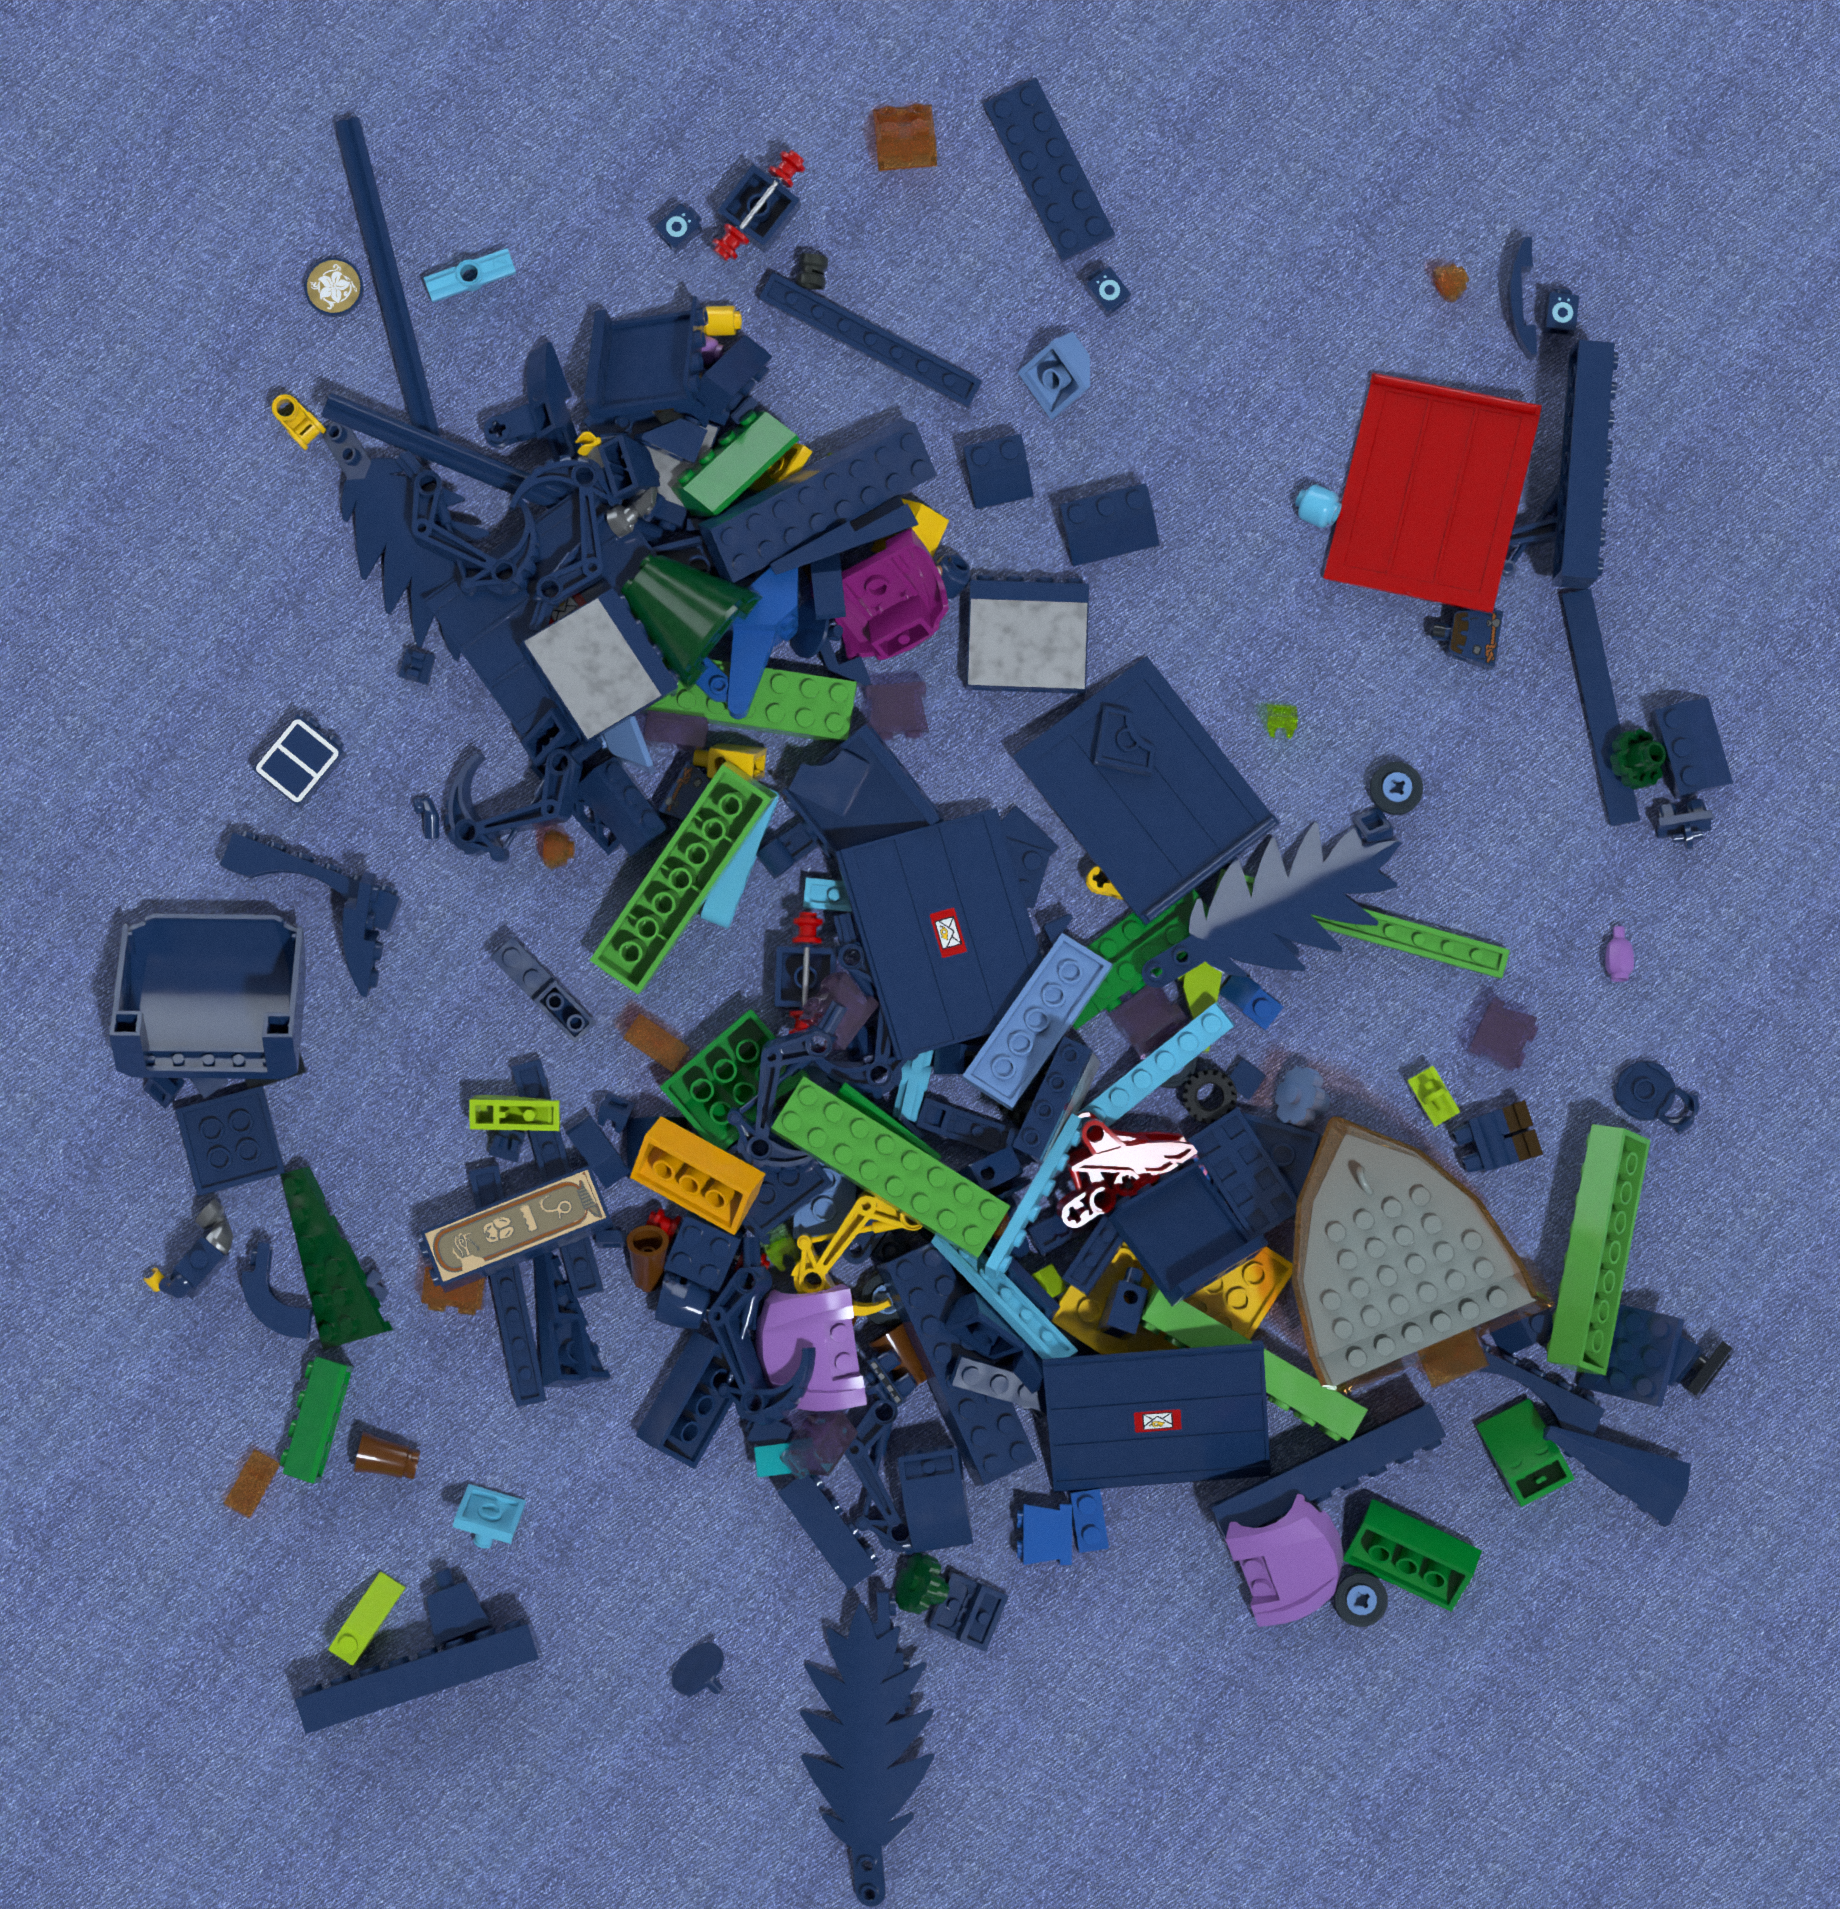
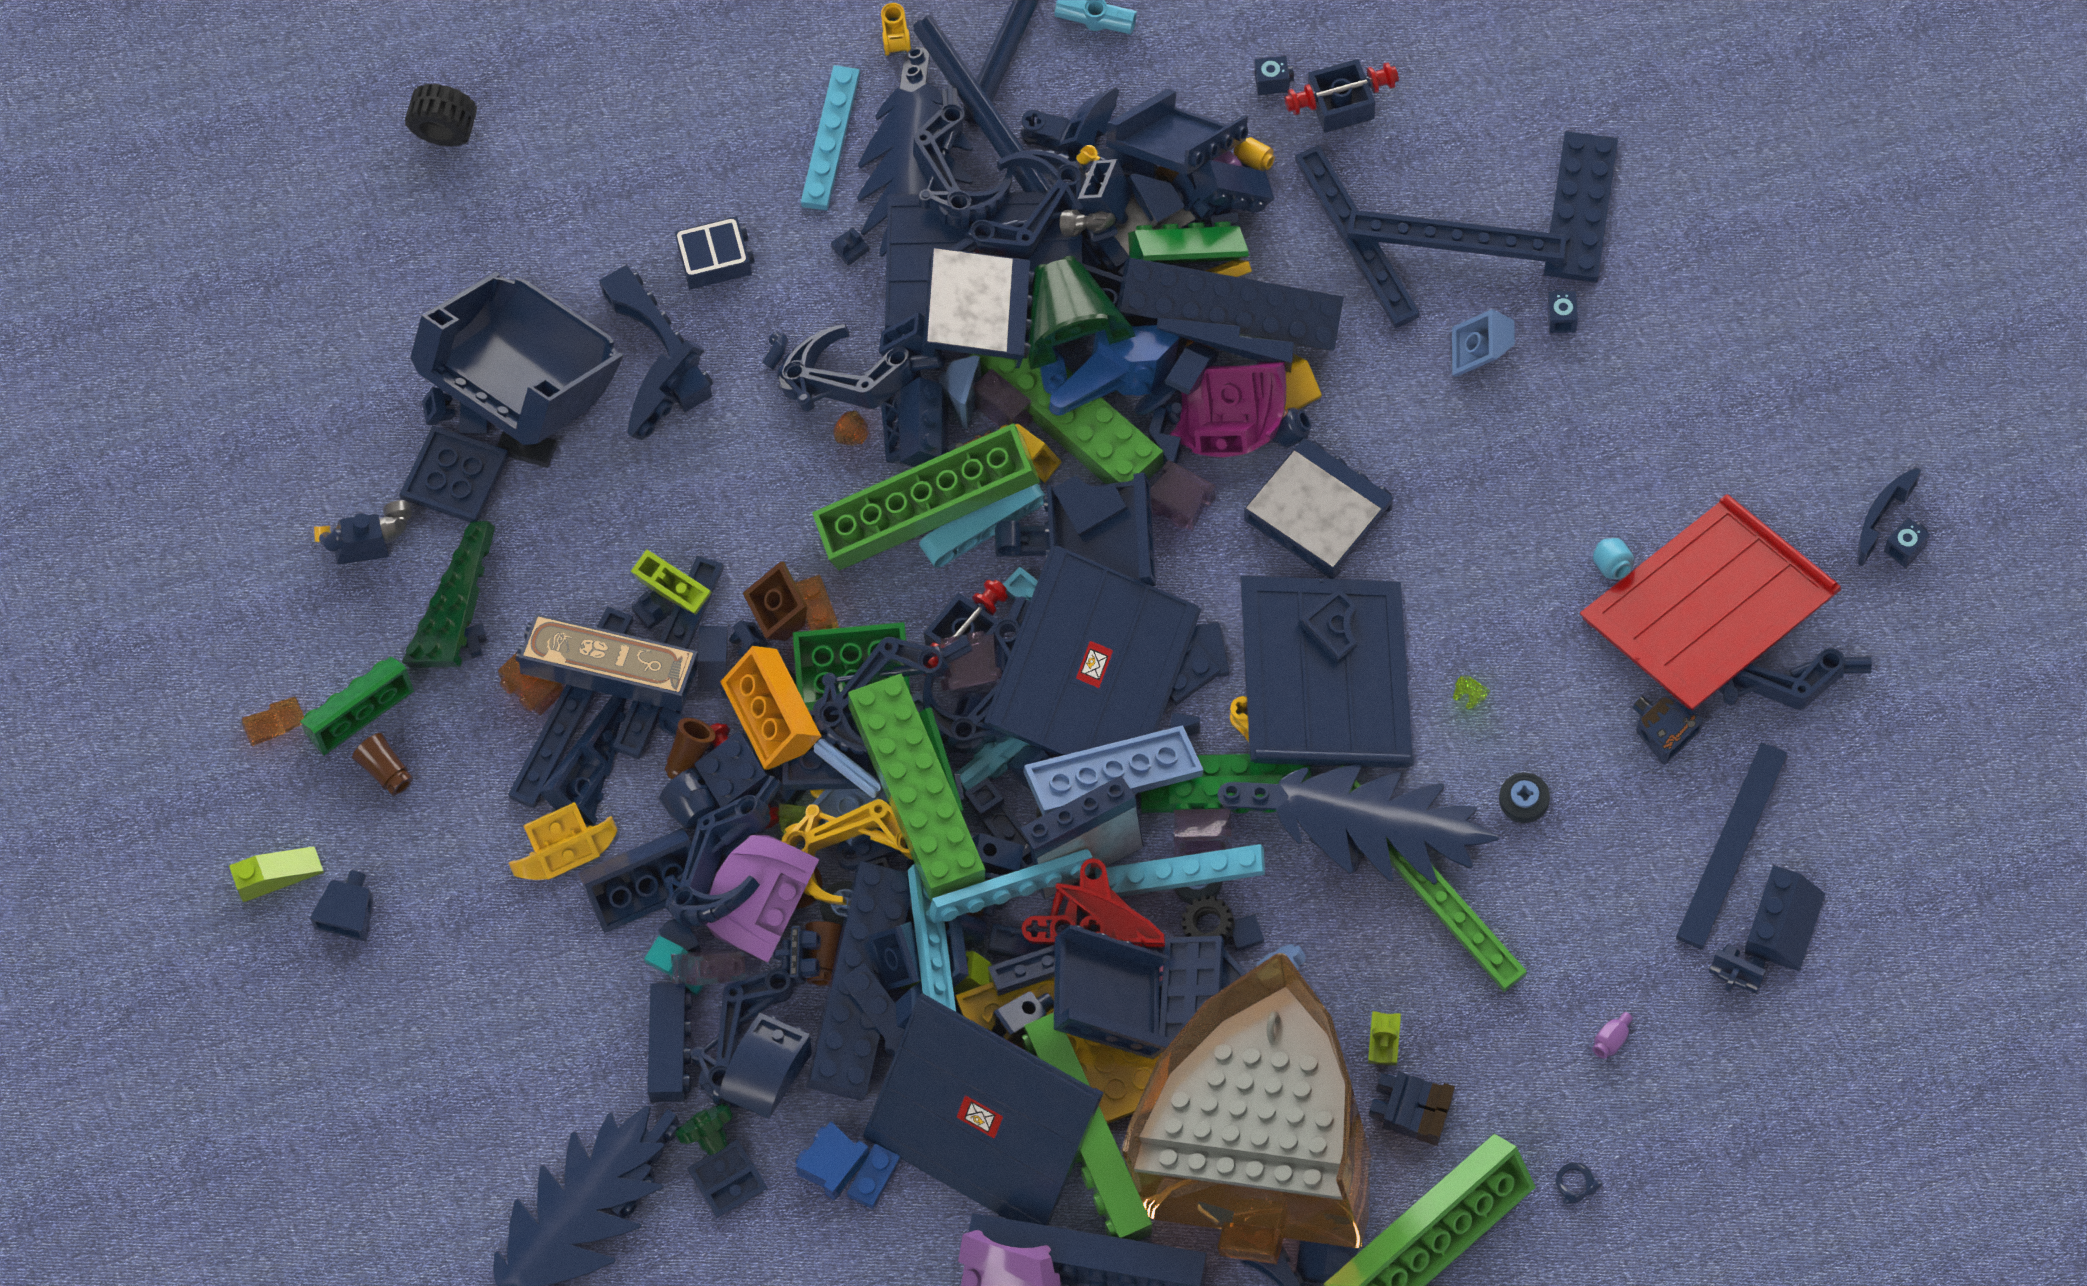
camera: 40 degrees right, 20 degrees down
(265, 1305) = (385, 598): dark blue arch -> none
(316, 568) = (830, 138): none -> medium azure plate
(419, 1677) = (279, 932): dark blue brick -> none
(489, 1515) = (424, 855): medium azure tile -> none
(543, 989) = (762, 515): dark blue slope -> none
(599, 1417) = (562, 843): none -> yellow plate
(621, 1068) = (777, 603): none -> reddish brown slope
(698, 1670) = (488, 1074): dark blue shield -> none
(807, 1183) = (848, 768): none -> light blue axle
(812, 271) = (1349, 162): pearl dark grey wheel -> none
(905, 137) = (1487, 116): clear orange slope -> none
(966, 284) = (1457, 236): none -> dark blue plate
(998, 471) = (1384, 381): dark blue slope -> none
(1109, 524) = (1441, 469): dark blue slope -> none
(1201, 989) = (1265, 830): lime slope -> none
(1251, 1000) = (1294, 879): blue slope -> none
(1374, 825) = (1486, 814): dark blue slope -> none
(1450, 281) = (1835, 466): clear orange cone -> none
(1503, 1036) = (1474, 1031): clear purple hips -> none
(1584, 464) = (1842, 646): dark blue brick -> none
(1637, 759) = (1733, 896): dark green plant -> none
(1645, 1091) = (1559, 1151): dark blue tile -> none

